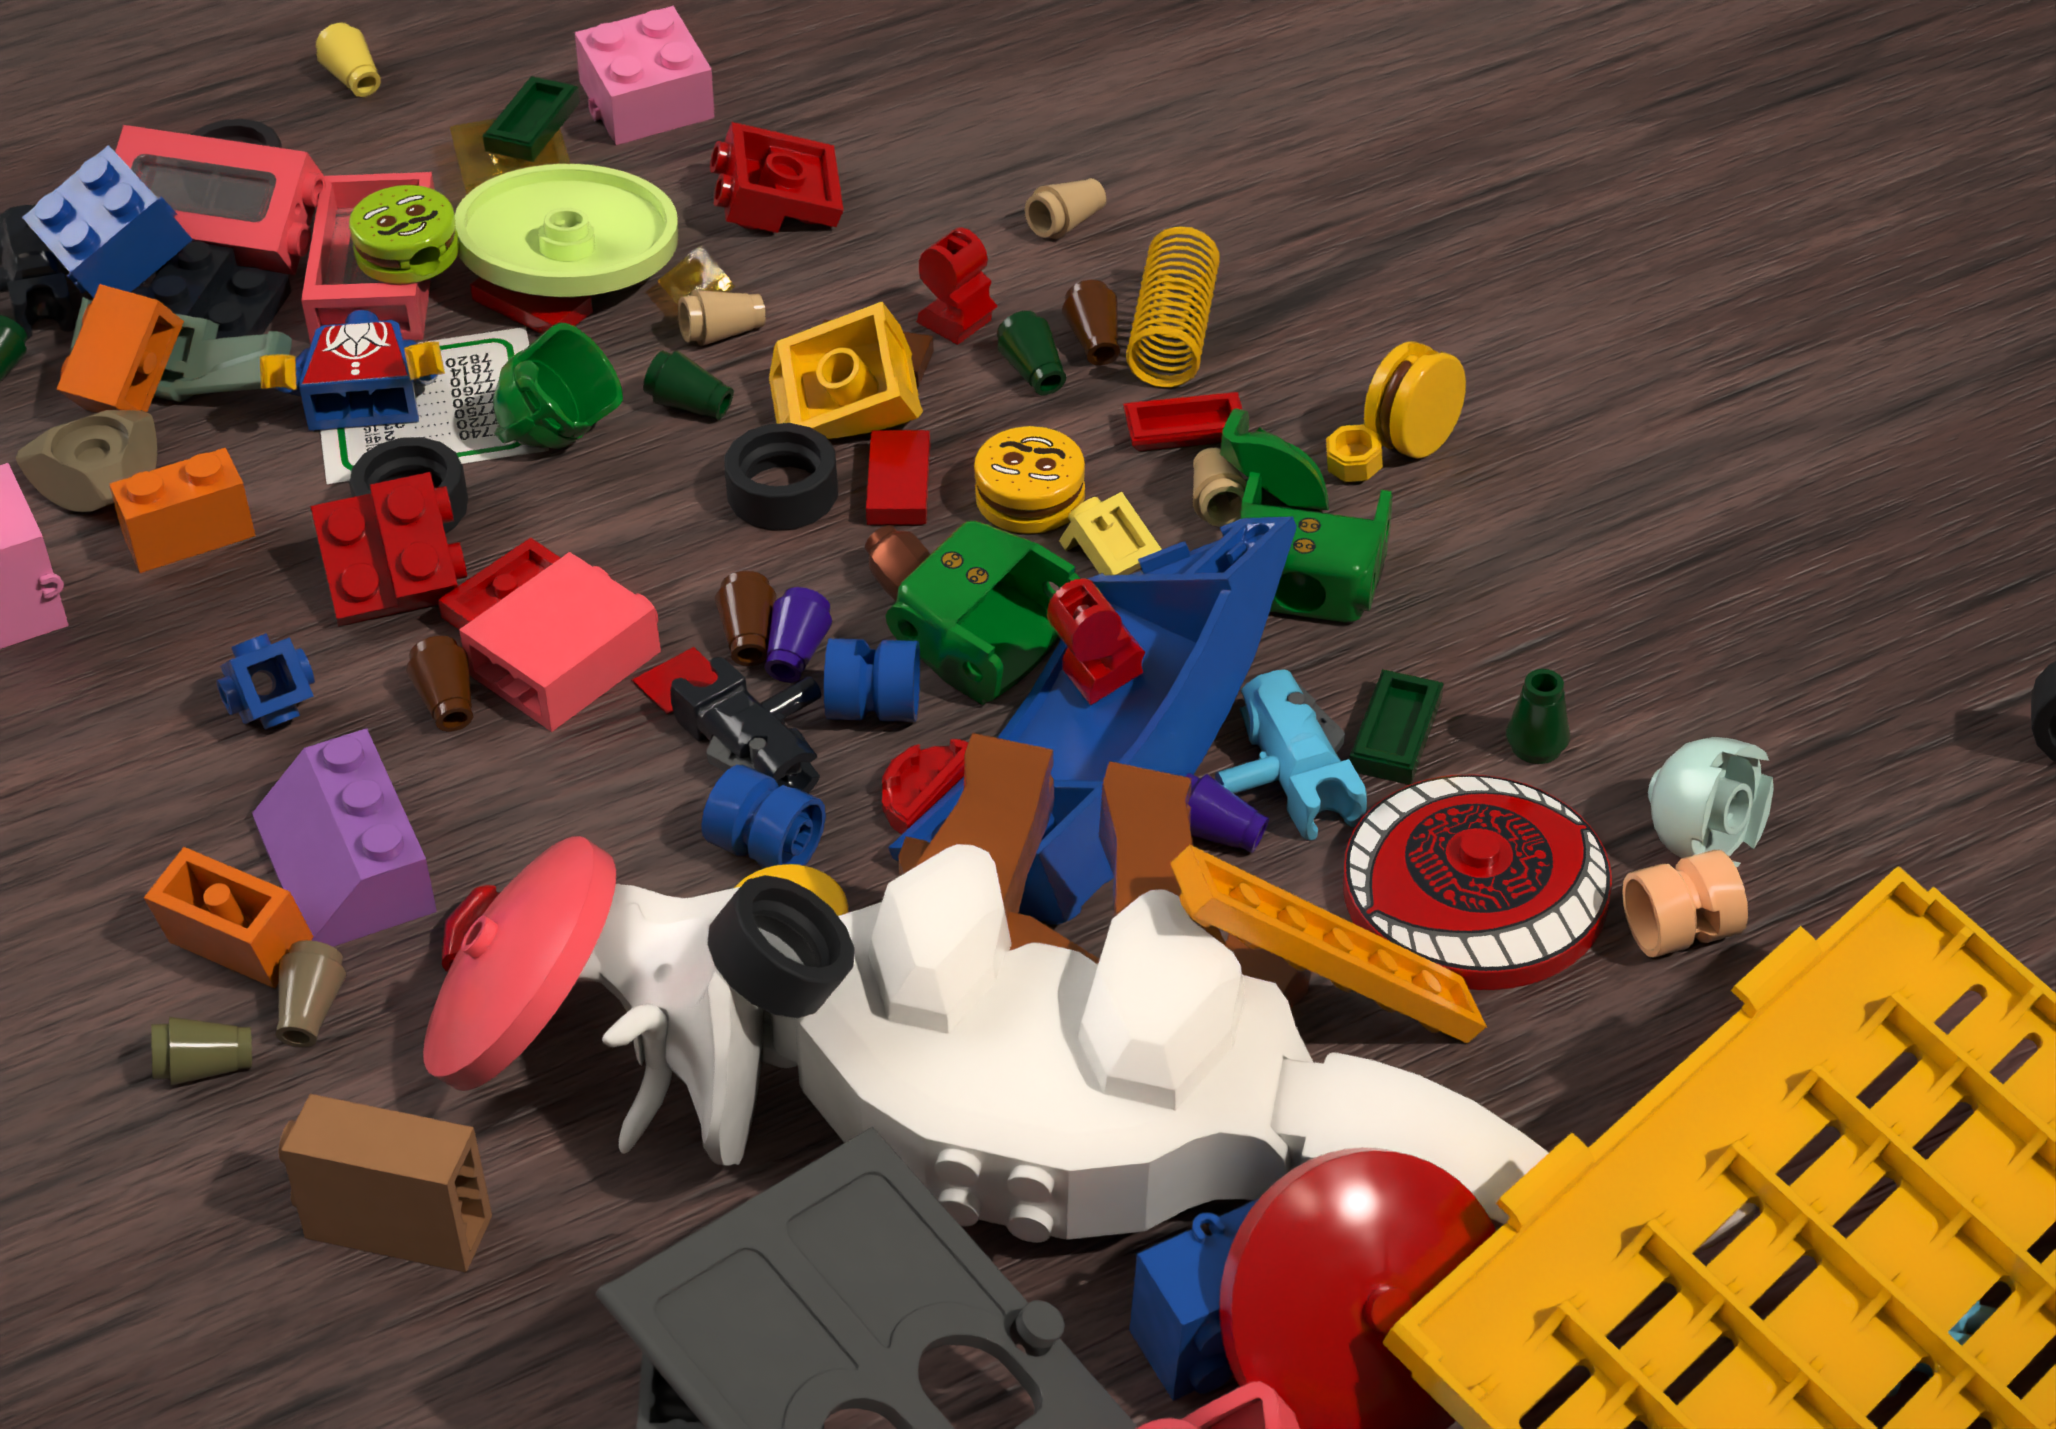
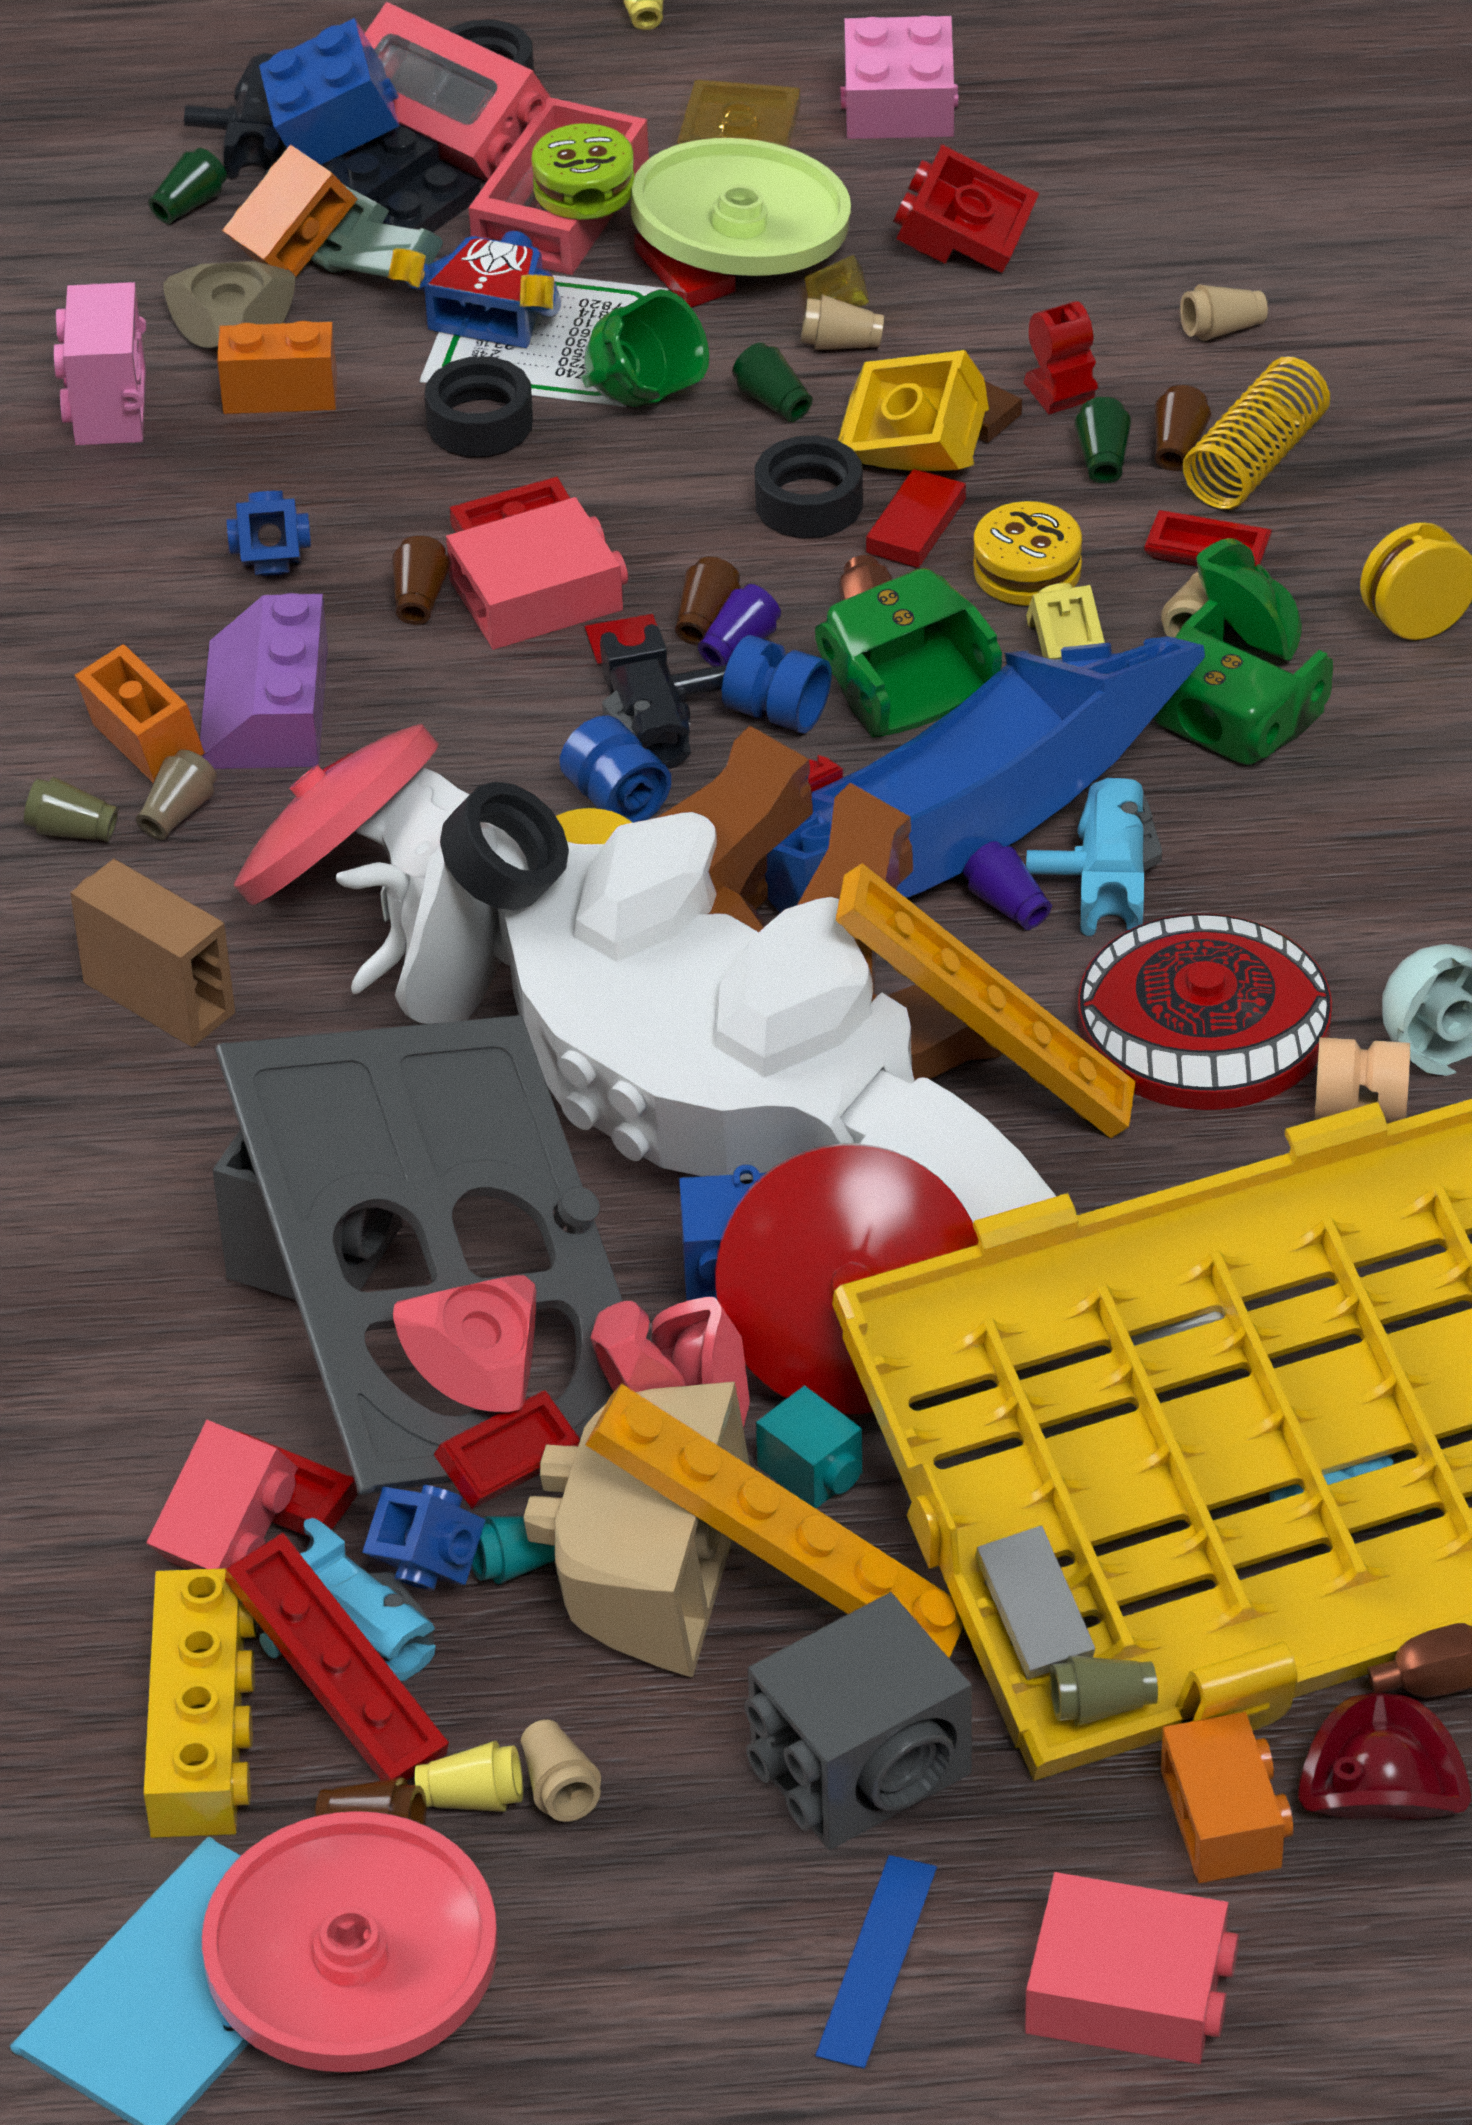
camera: 25 degrees right, 0 degrees up
(388, 549) = (428, 450): red plate -> none
(531, 119) = (769, 92): dark green tile -> none
(1099, 646) = (976, 701): red leg -> none
(1354, 453) = (1341, 615): yellow tile -> none
(1396, 726) = (1221, 864): dark green tile -> none
(1540, 719) = (1344, 893): dark green cone -> none

